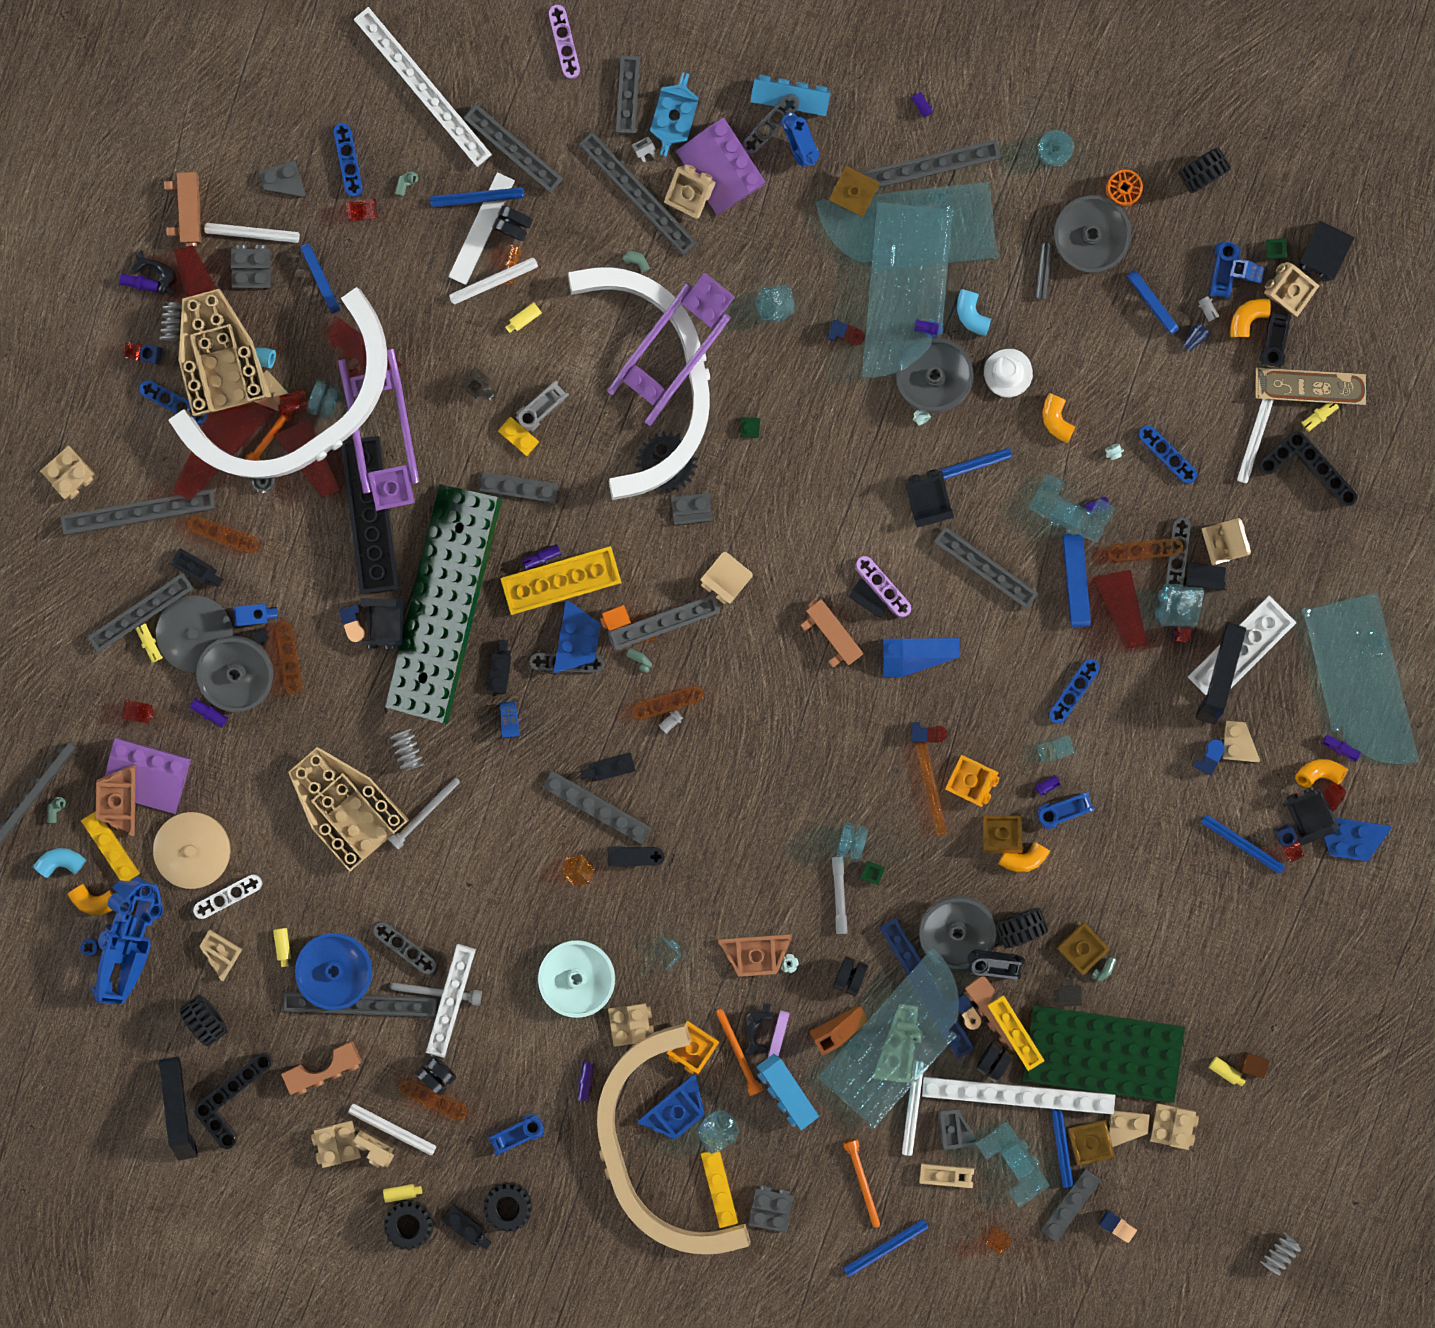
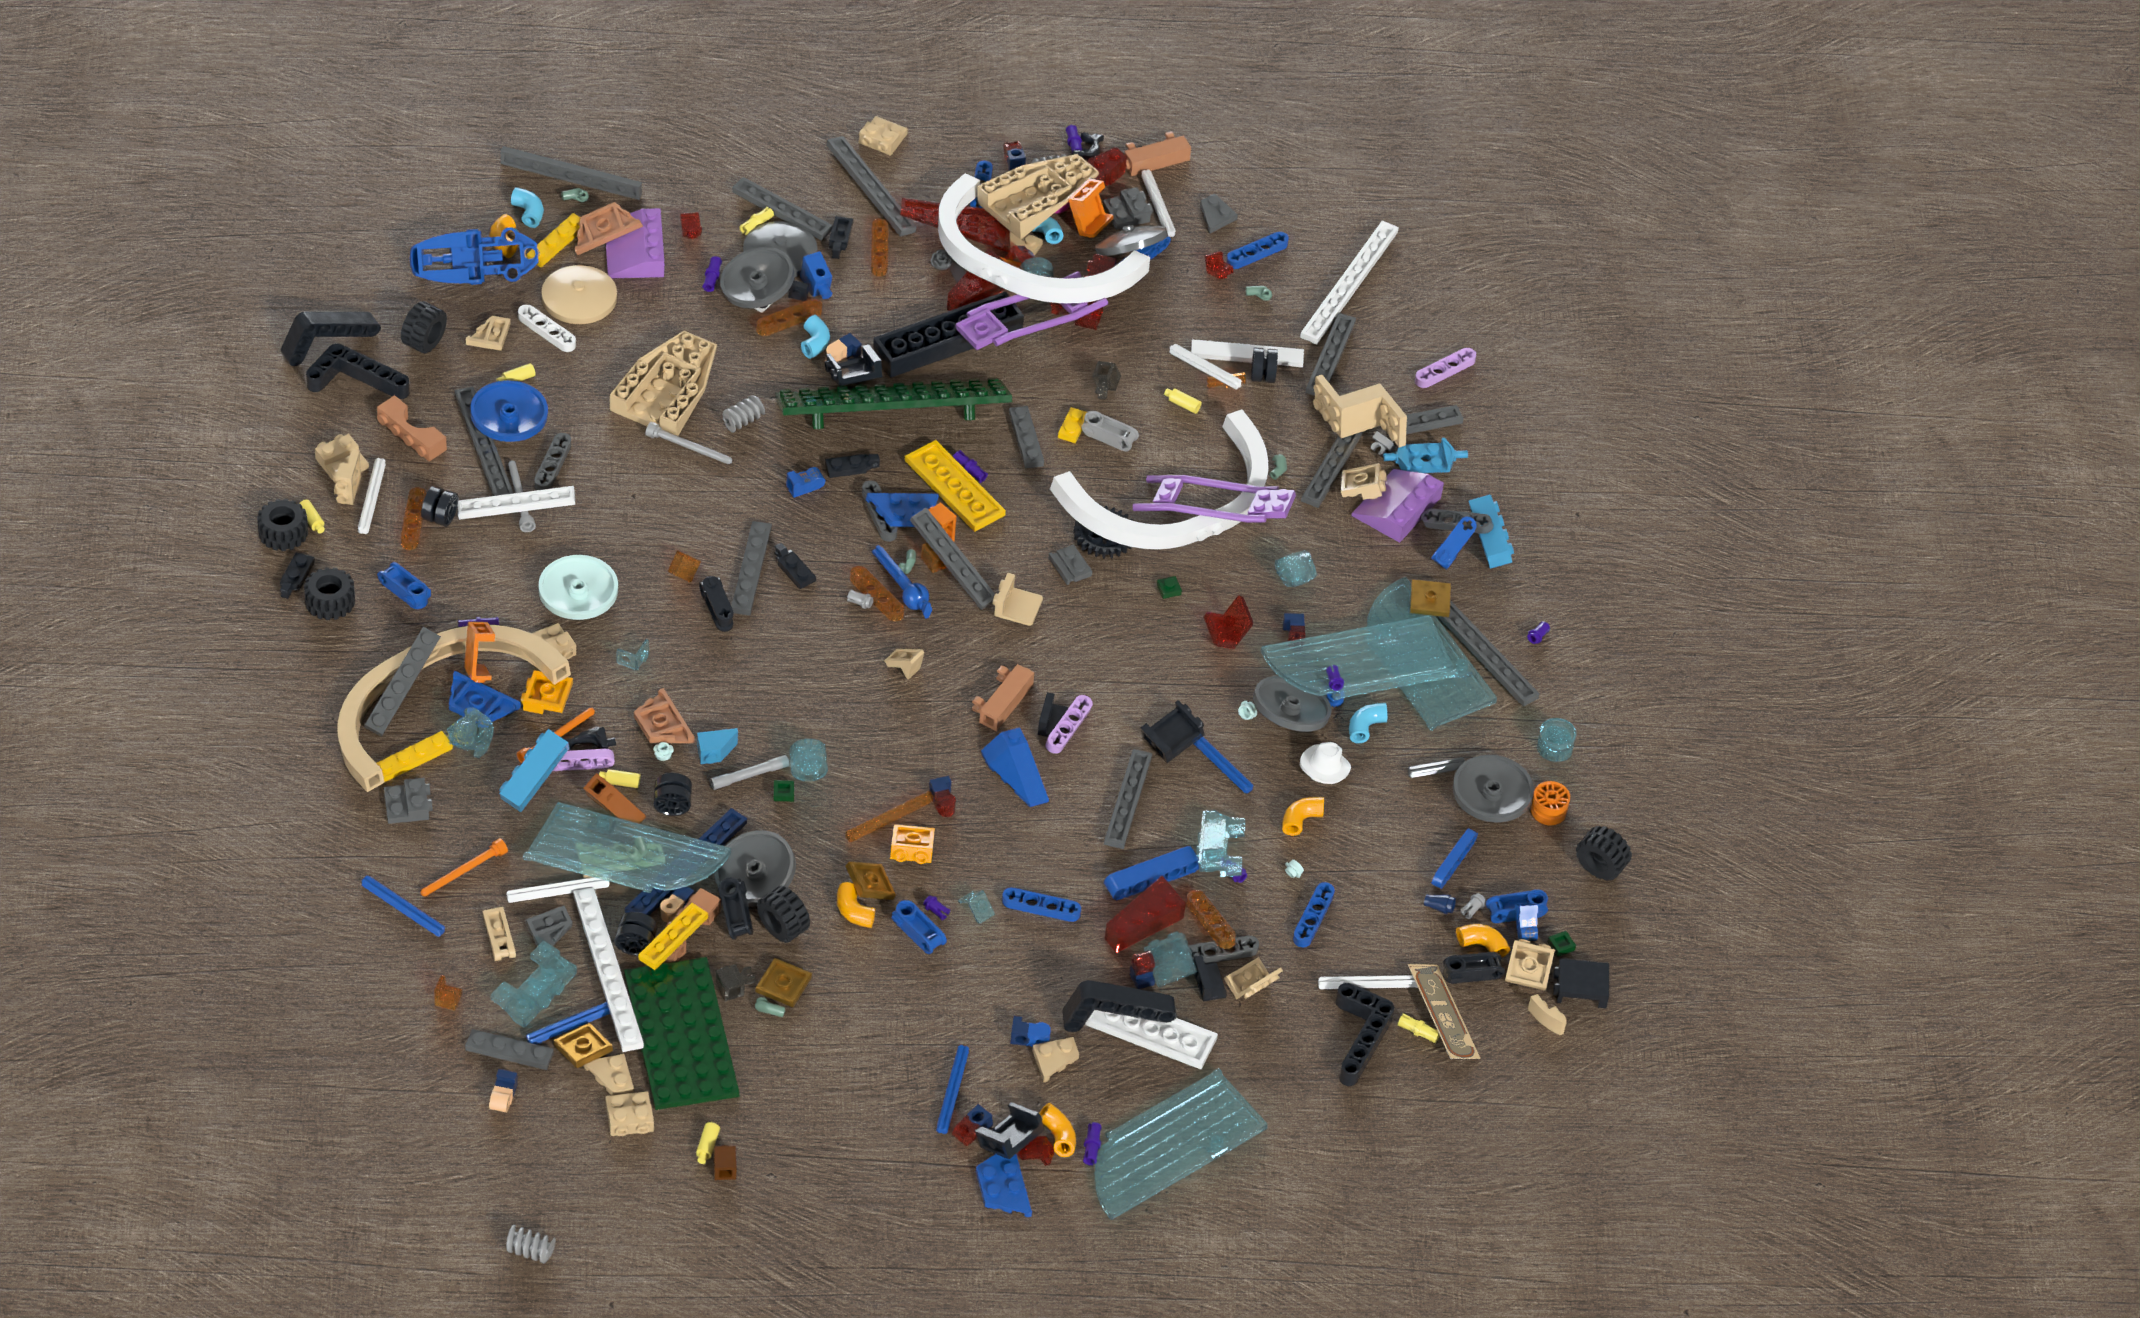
camera: 60 degrees right, 40 degrees down
(255, 311) = (1088, 209): none -> orange panel
(312, 289) = (1131, 239): none -> dish
(329, 639) = (819, 339): none -> medium azure cylinder
(477, 197) = (1274, 339): blue axle -> none
(610, 160) = (1360, 410): none -> tan bracket
(635, 1098) = (477, 632): none -> orange panel
(640, 1175) = (402, 681): none -> dark grey plate
(688, 672) = (914, 594): none -> blue piece
(760, 710) = (907, 659): none -> tan slope
(802, 917) = (716, 745): none -> dark azure slope
(808, 1012) = (621, 778): none -> light yellow cylinder
(822, 394) = (1231, 626): none -> clear red bracket
(1351, 295) = (1550, 1018): none -> tan slope

